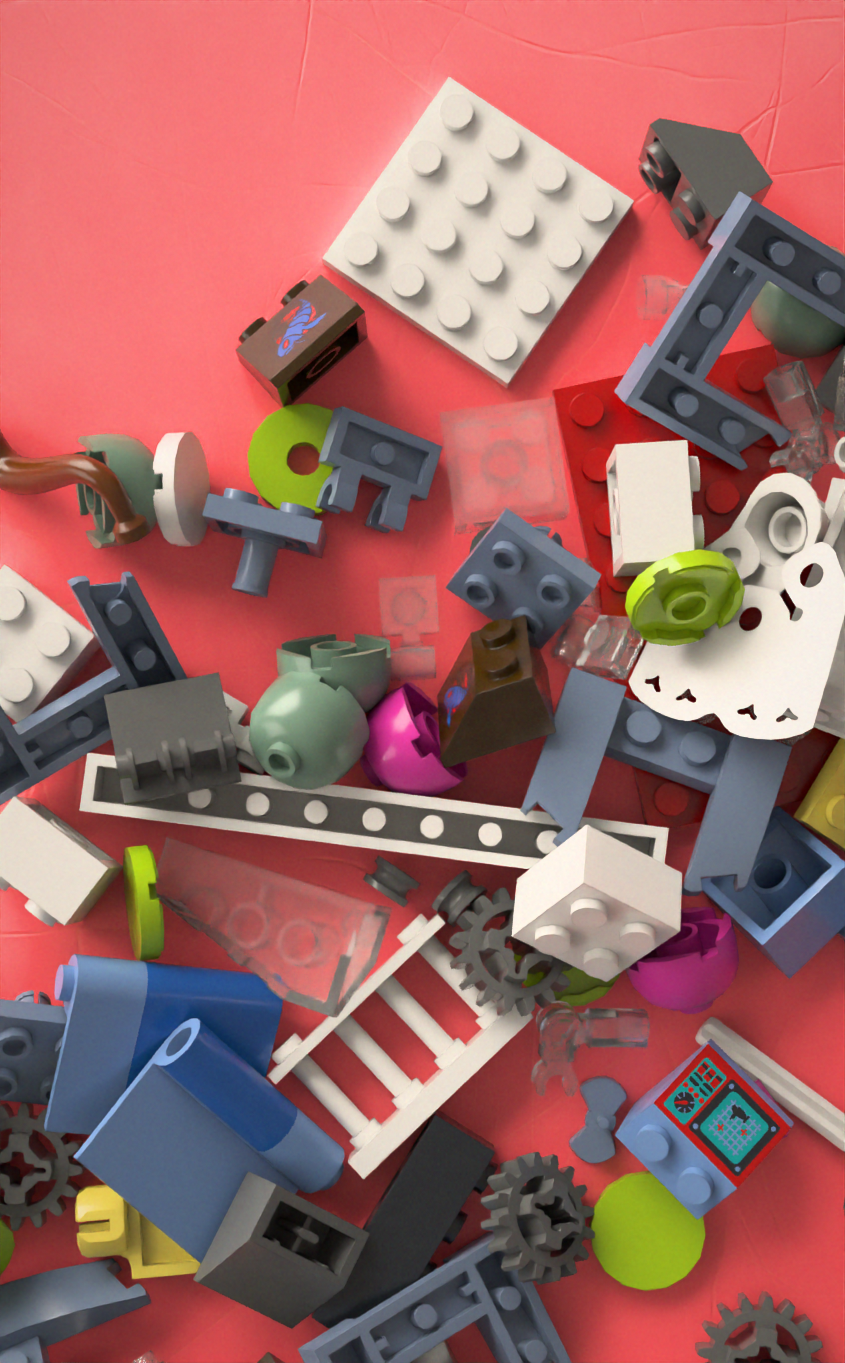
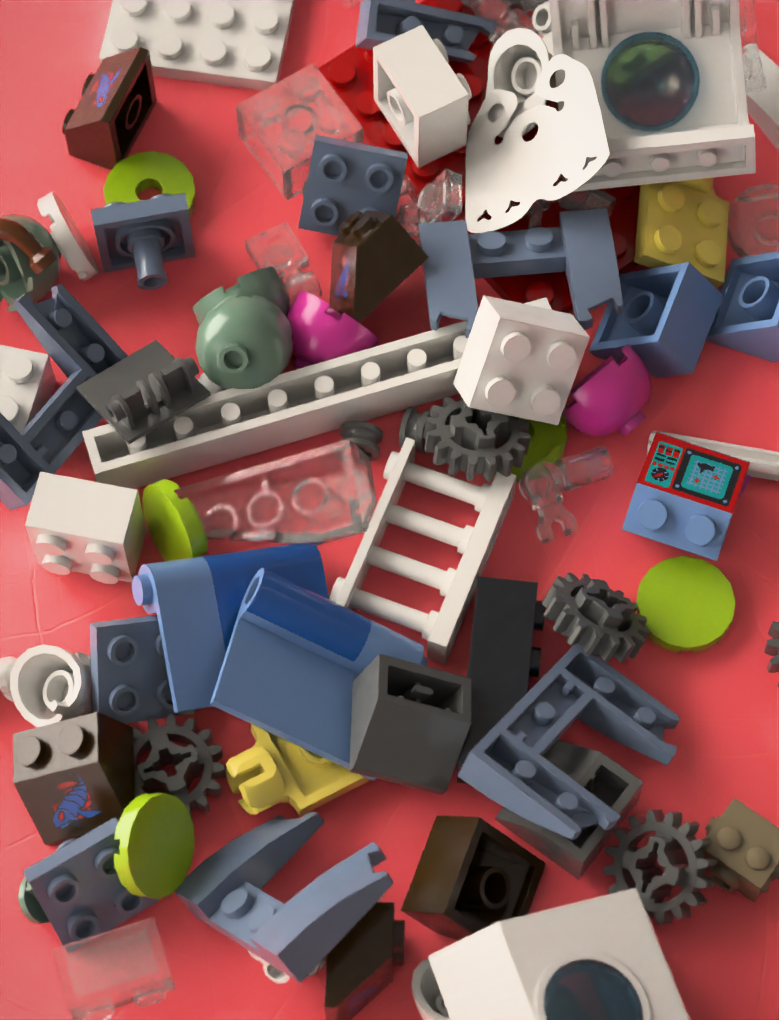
camera: 25 degrees left, 20 degrees down
(378, 454) = (207, 159): sand blue plate -> none
(595, 1139) = (610, 559): sand blue piece -> none
(684, 596) = (474, 130): lime tile -> none

